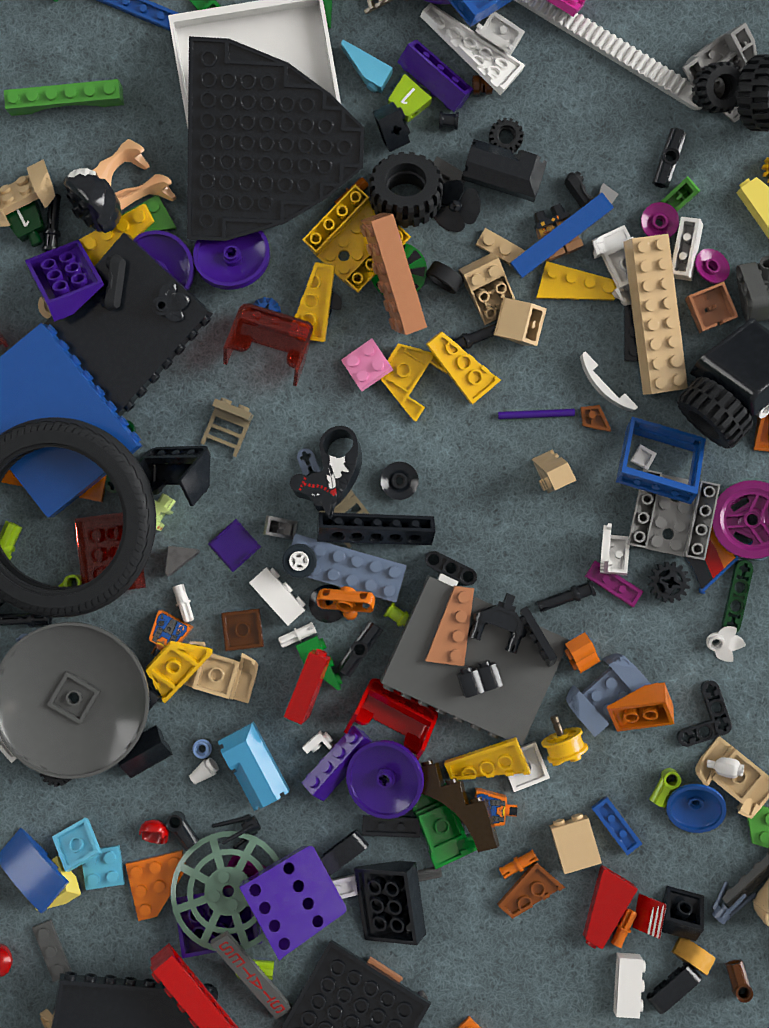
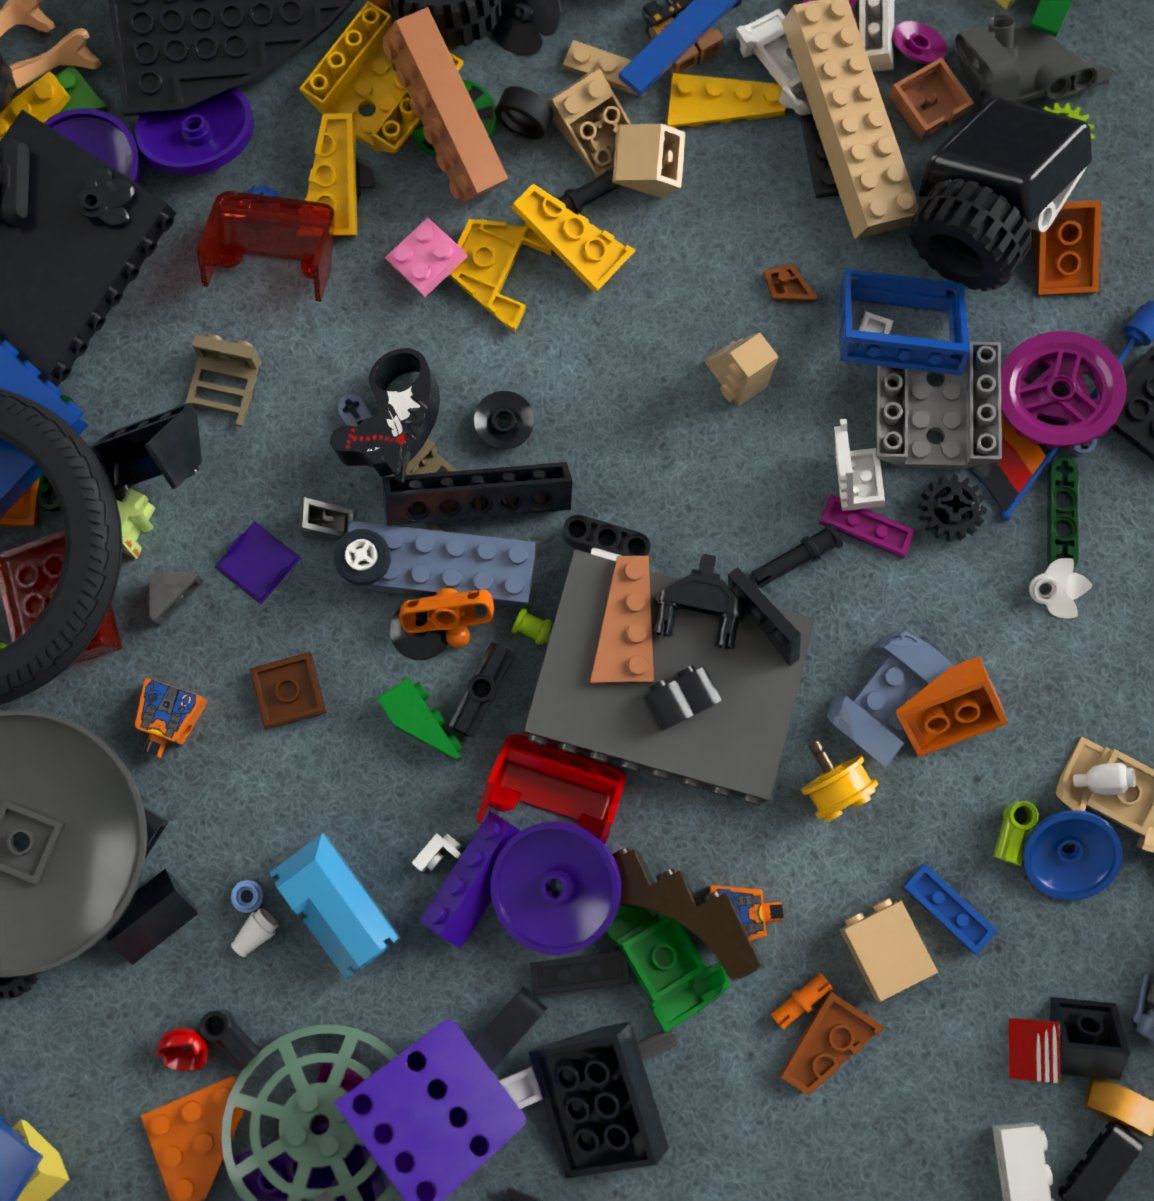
camera: 15 degrees left, 10 degrees down
(76, 844) = (52, 1094): medium azure plate -> none
(104, 869) = (102, 1128): medium azure plate -> none
(175, 666) = (184, 763): yellow wing -> none
(183, 603) = (185, 663): white axle -> none
(225, 676) = (257, 766): tan piece -> none
(249, 826) = (344, 1012): black plant -> none
(278, 595) = (338, 626): white brick -> none
(297, 635) = (378, 684): white axle -> none
(307, 687) = (405, 757): red slope -> none
(497, 759) = (730, 832): yellow wing -> none
(536, 414) = (698, 292): dark purple bar -> none
(536, 765) = (781, 836): white plate -> none
(581, 653) = (838, 635): orange brick -> none
(608, 904) = (961, 1047): red slope -> none
(622, 402) = (827, 253): white slope -> none
(623, 928) = (996, 1079): orange axle -> none
(712, 724) = (1068, 718): black beam -> none

